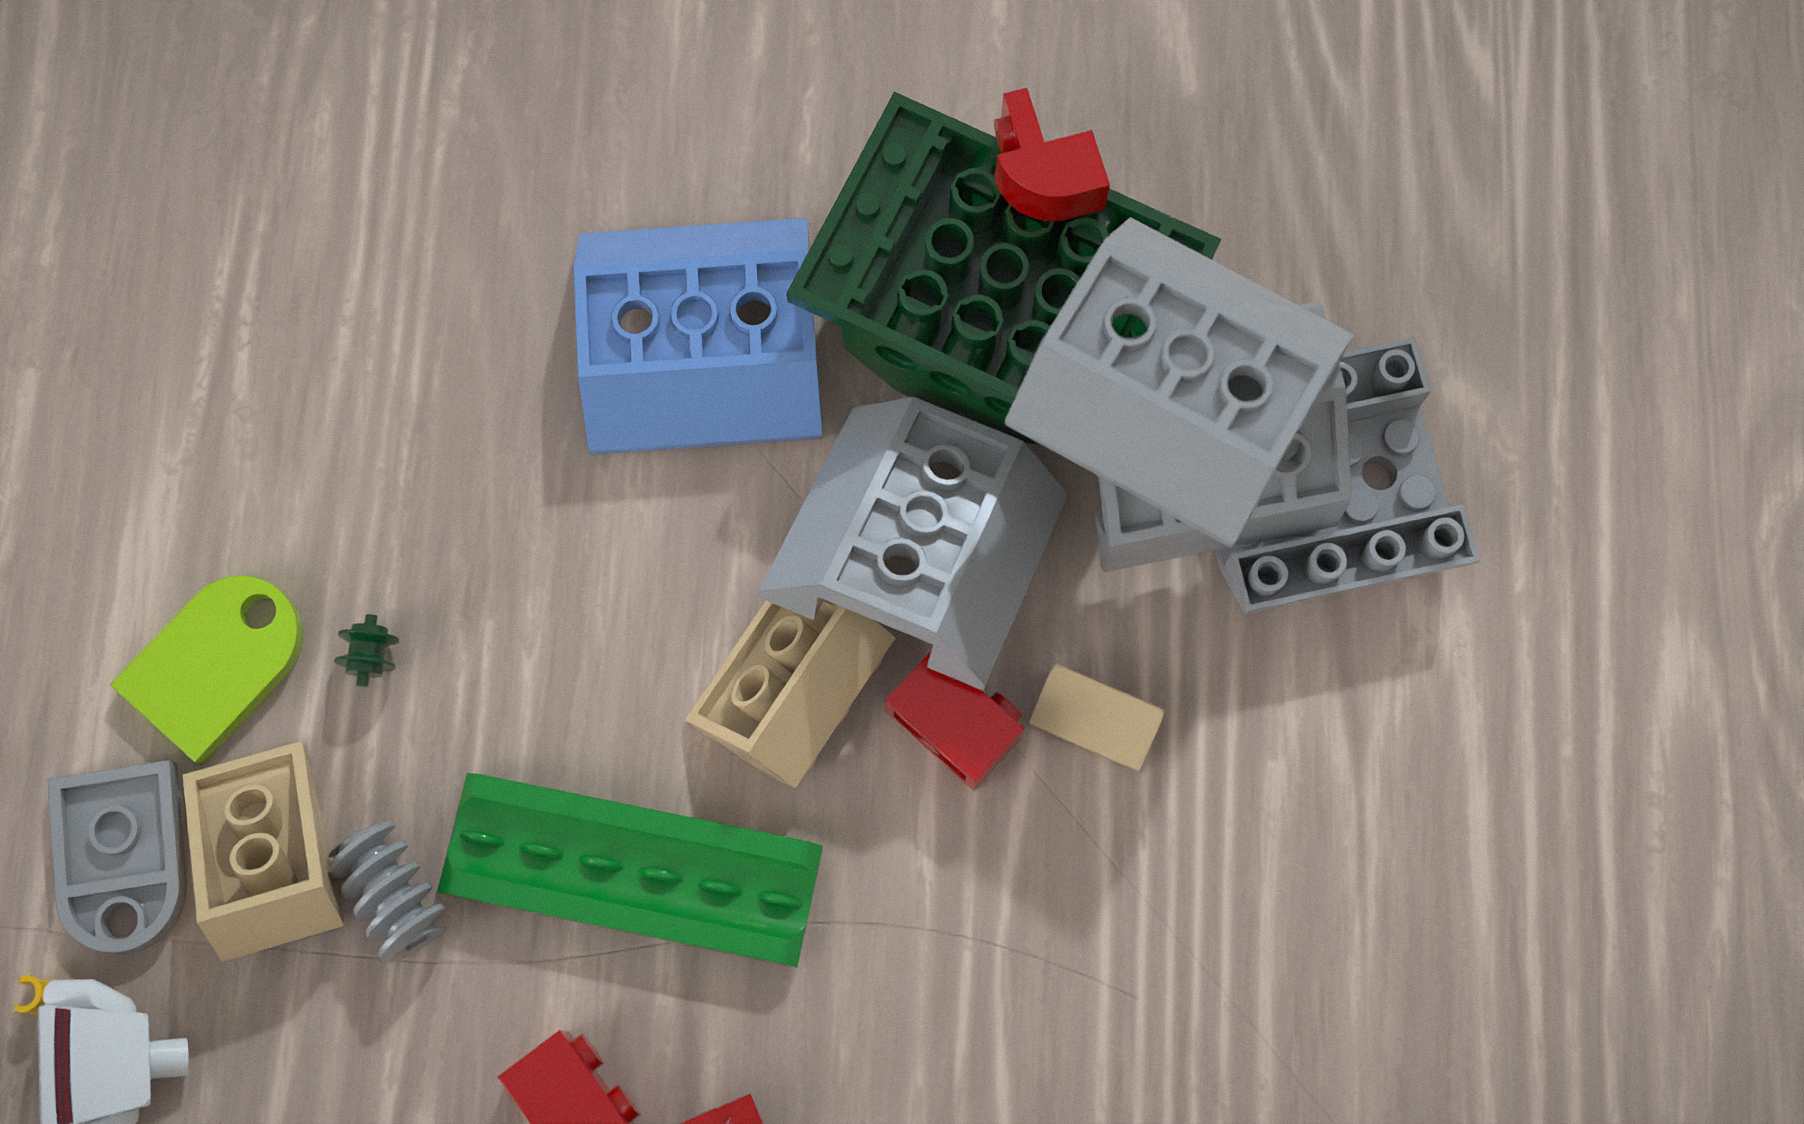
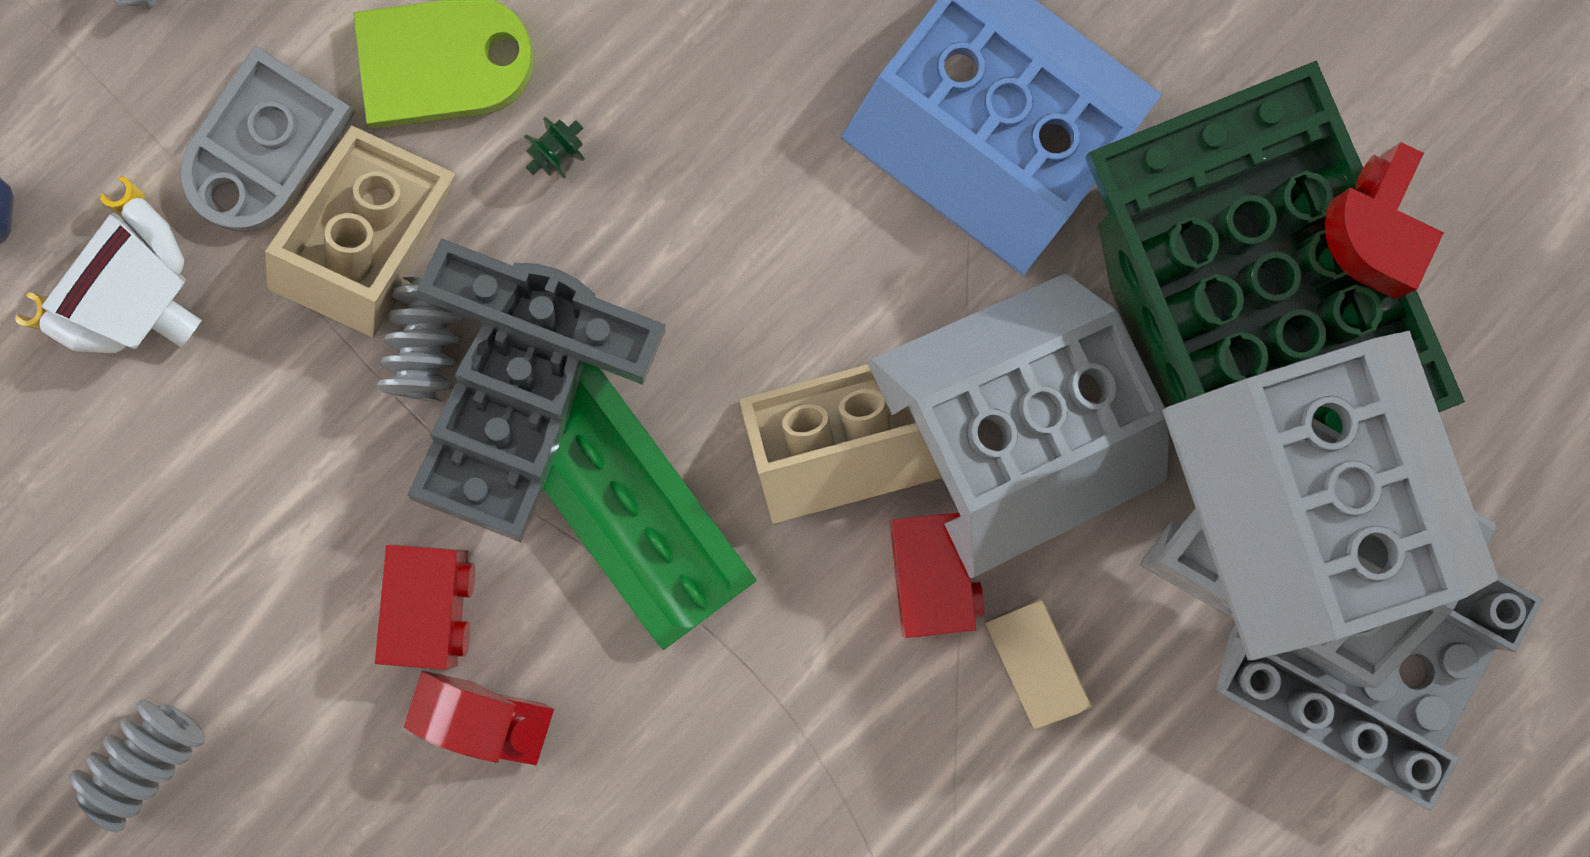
camera: 40 degrees right, 10 degrees up
(493, 851) = (517, 381): none -> dark grey slope

